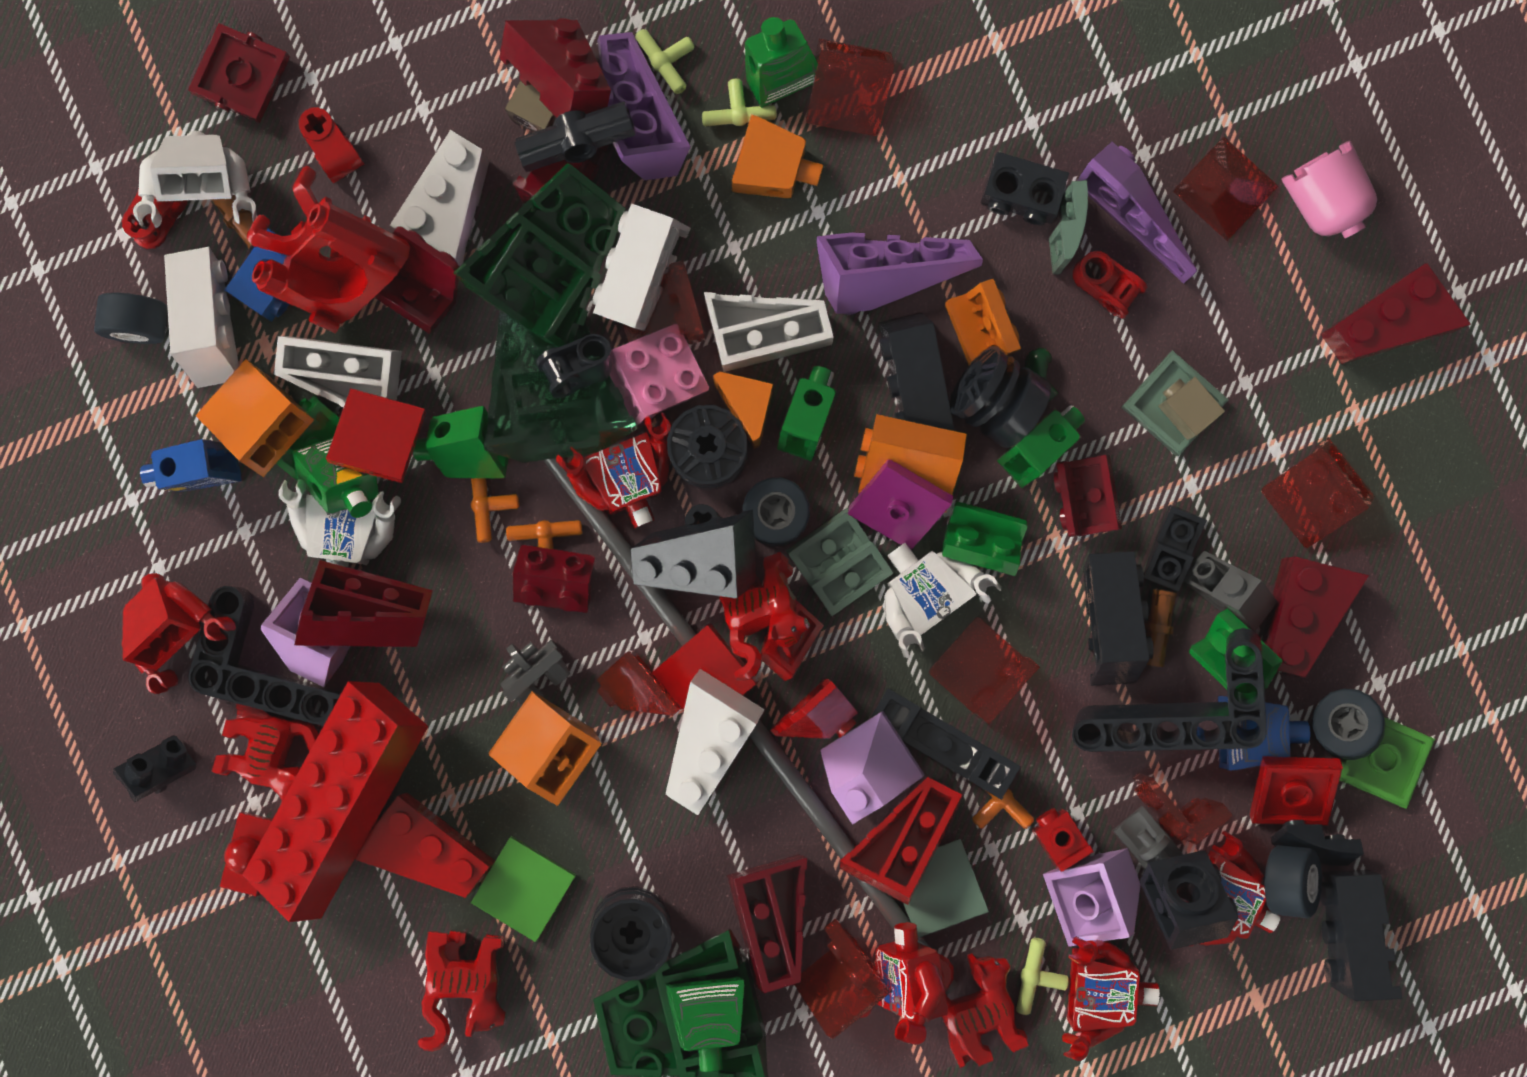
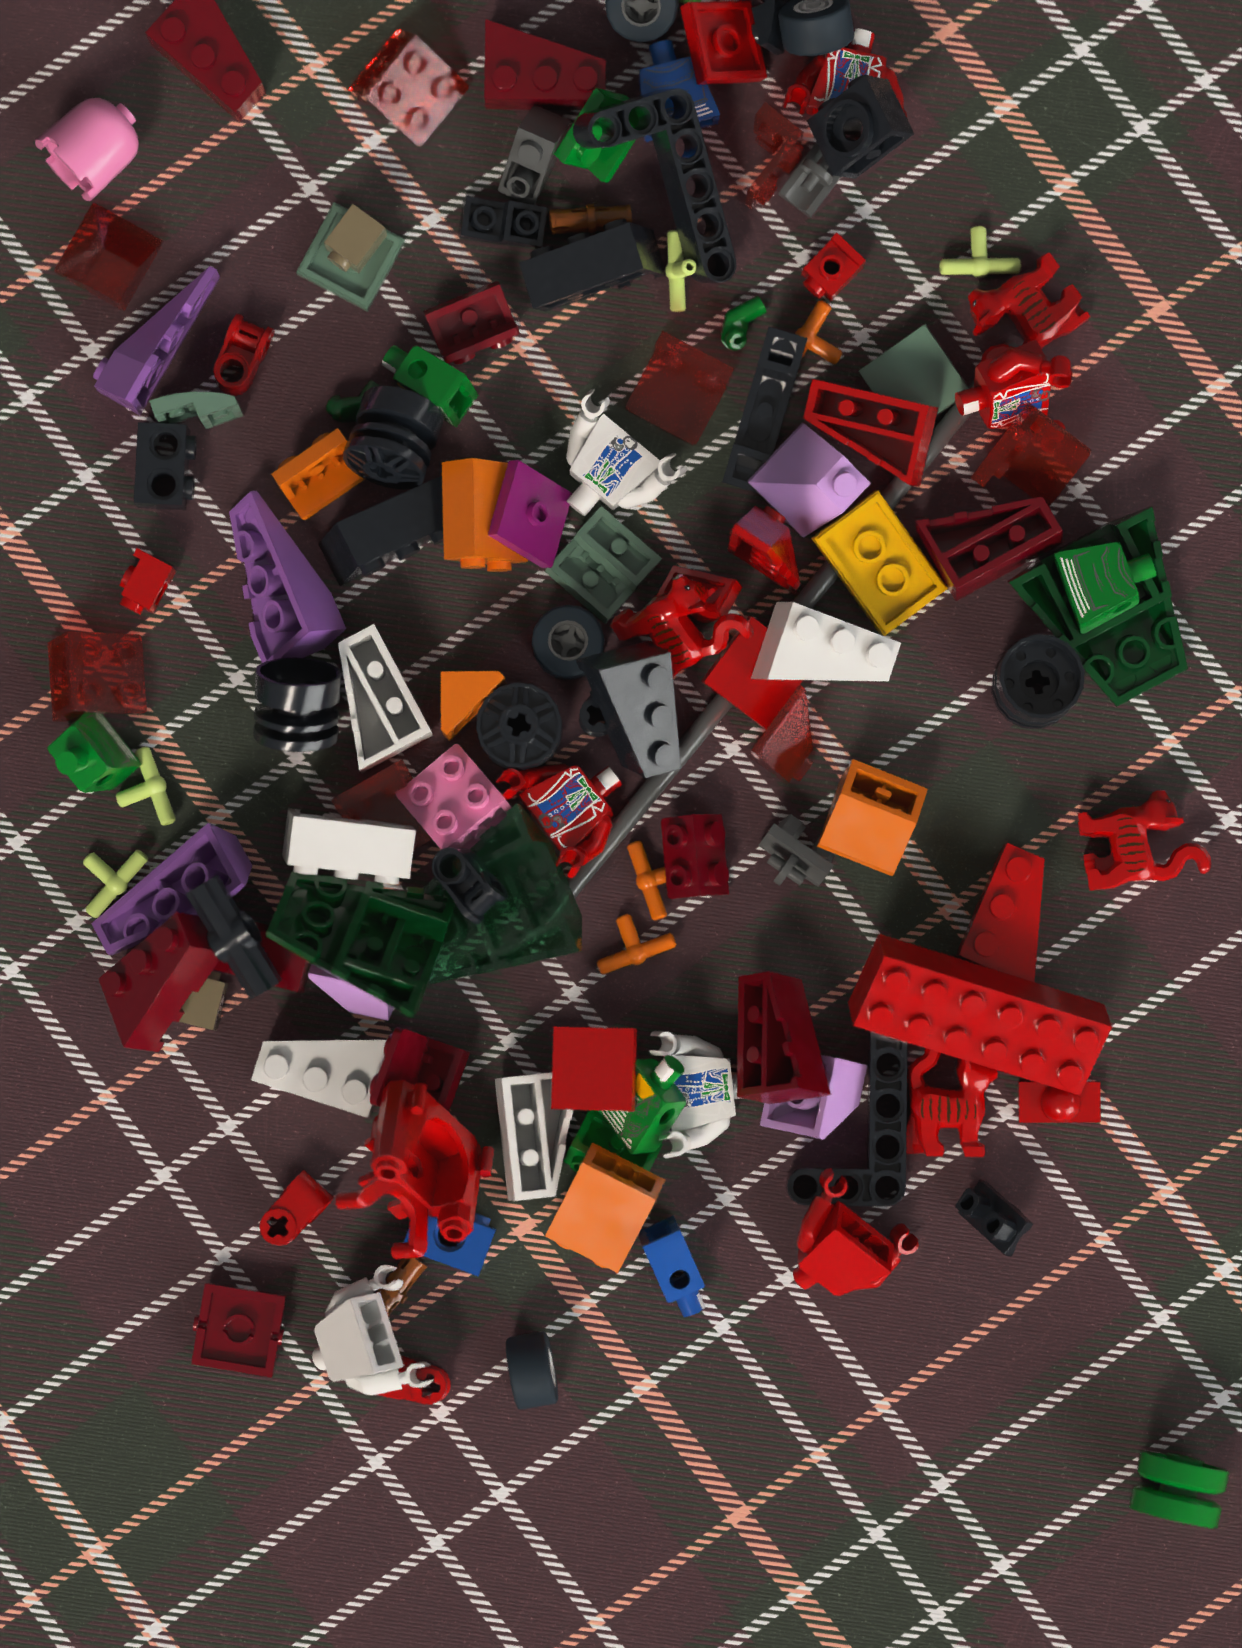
camera: 105 degrees left, 0 degrees up
(200, 316) = (510, 1296): white wedge -> none
(457, 446) = (580, 983): green torso -> none
(523, 888) = (1023, 807): bright green tile -> none
(772, 161) = (197, 736): orange torso -> none
(777, 251) = (297, 704): none -> black wheel
(778, 813) = (879, 563): none -> yellow tile
(807, 414) = (472, 635): green torso -> none
(922, 148) = (145, 583): none -> red brick
(984, 538) = (543, 419): green bracket -> none
(1031, 738) = (736, 322): none -> green arm
(1091, 695) = (676, 272): none -> yellowish green piece
(1096, 897) = (883, 219): lavender slope -> none
(1102, 995) = (979, 189): red torso -> none

